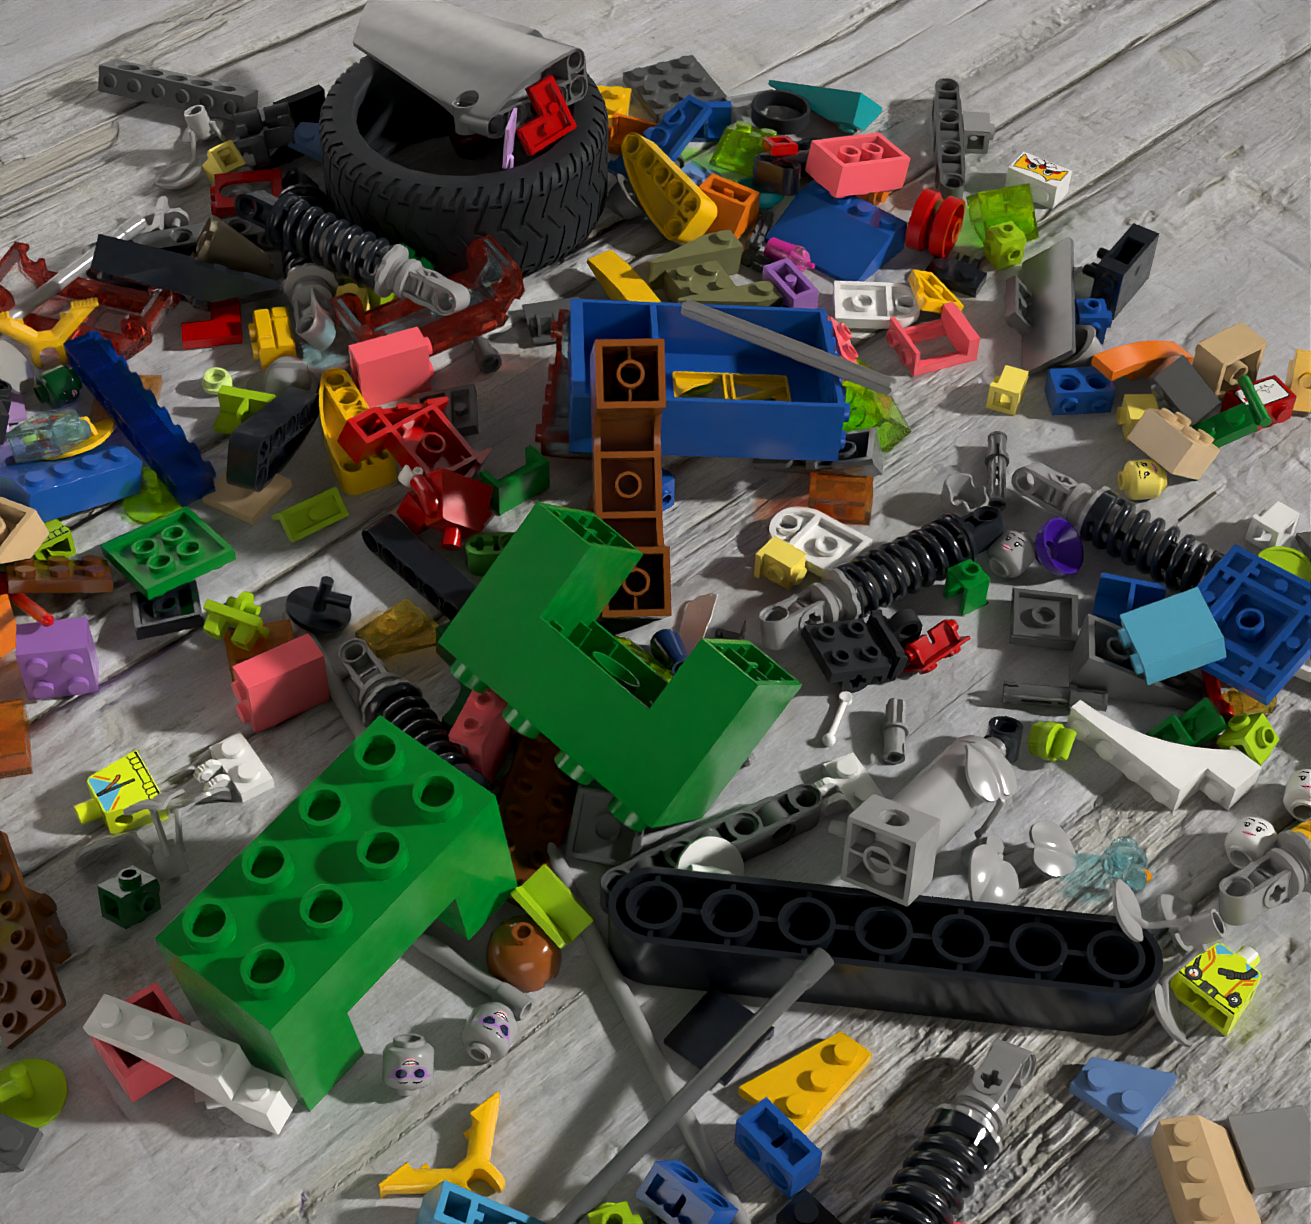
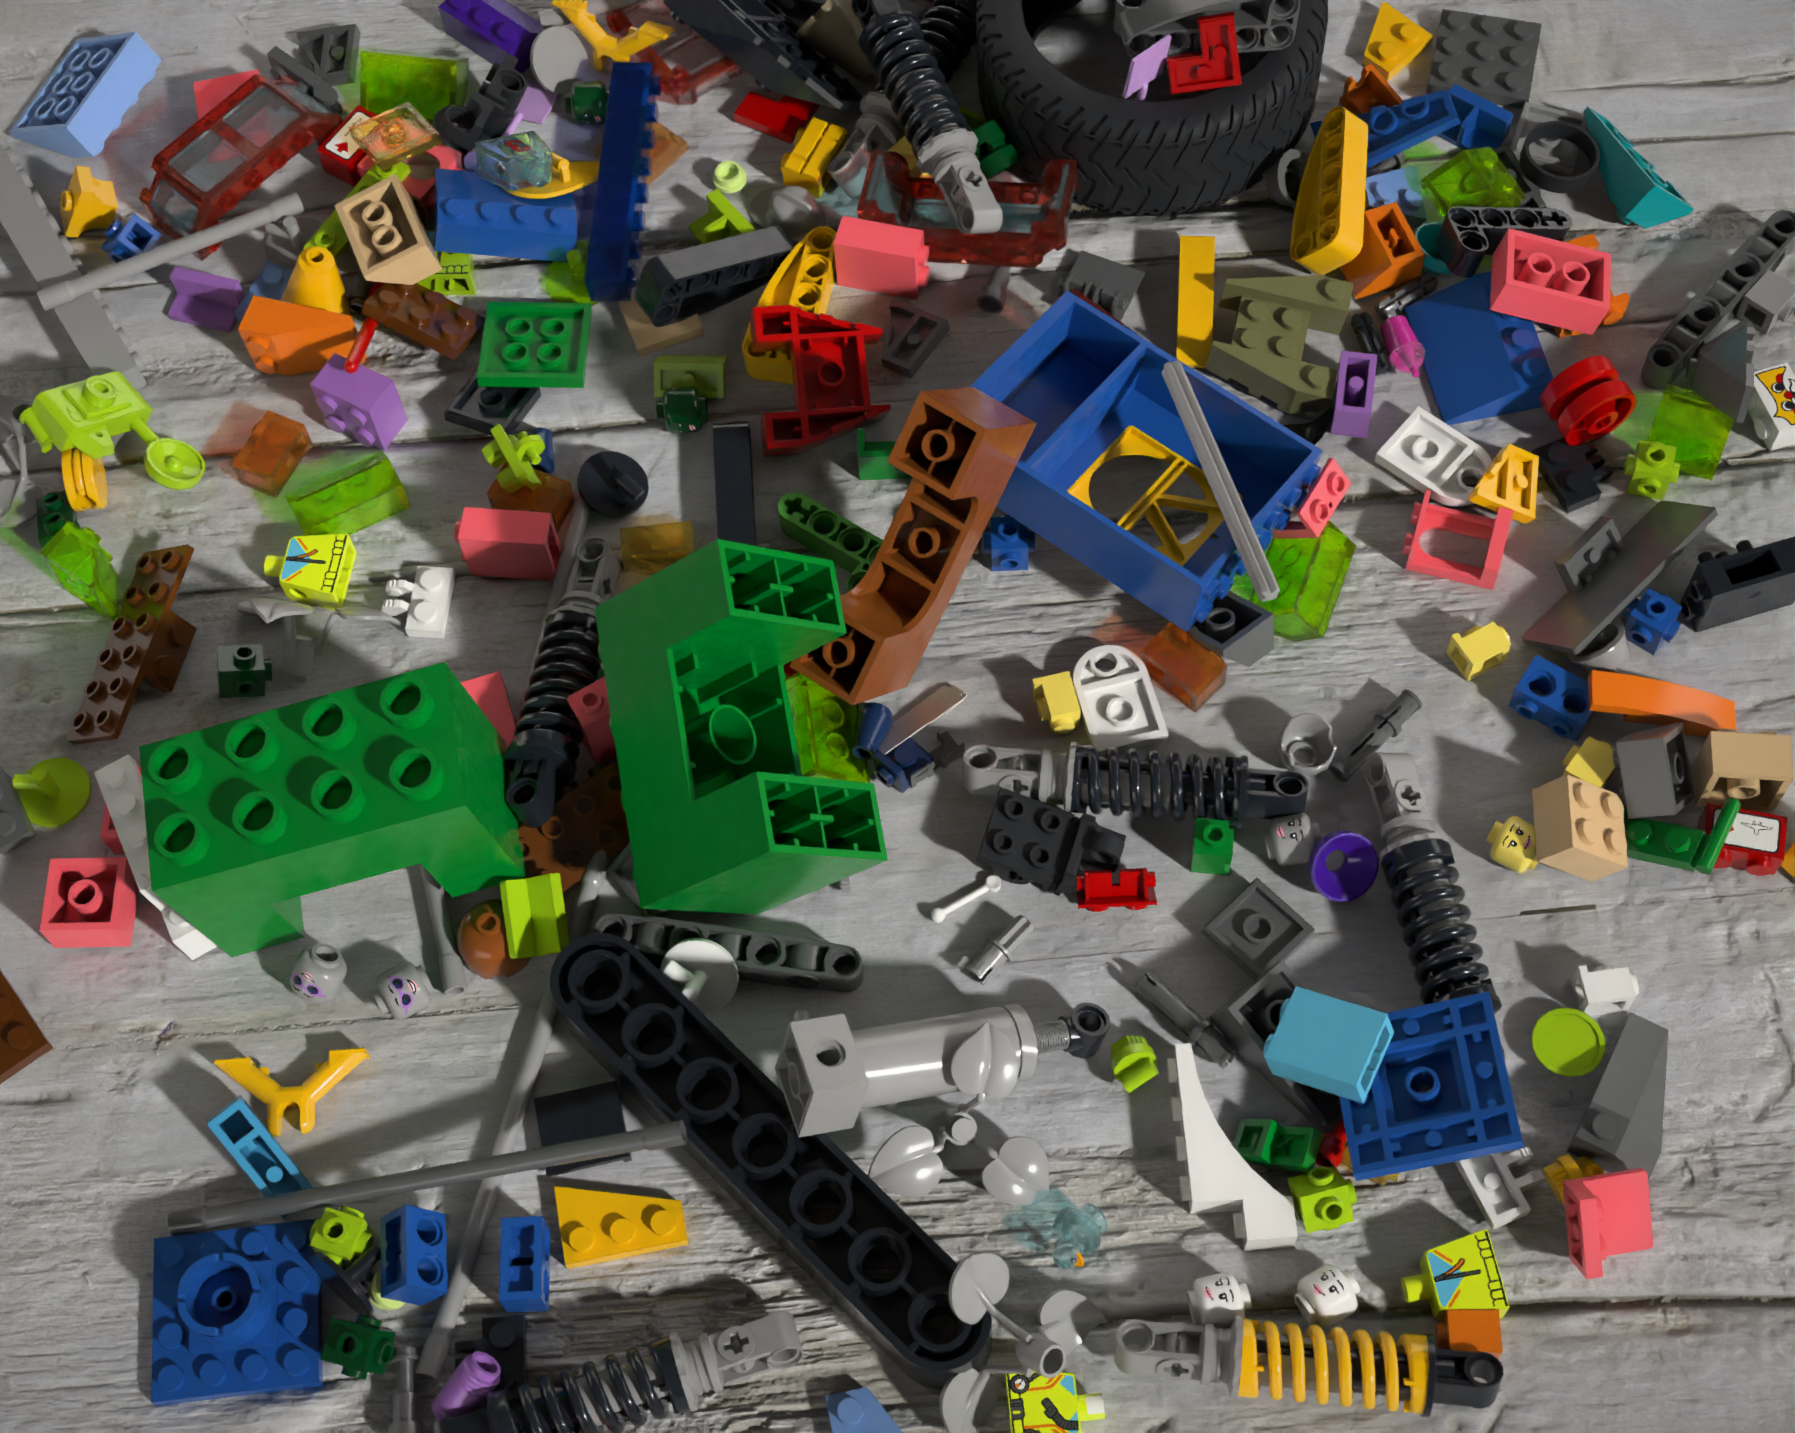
camera: 45 degrees right, 15 degrees up
(104, 731) = (349, 498): none -> clear neon green slope
(154, 1141) = (89, 903): none -> coral brick
(327, 536) = (682, 410): none -> dark green head
(450, 503) = (797, 451): red torso -> none
(779, 146) = (1495, 208): red tile -> none
(849, 782) = (913, 977): white hinge -> none
(1004, 163) = (1724, 371): none -> dark grey wedge
(1123, 594) = (1356, 972): blue panel -> none

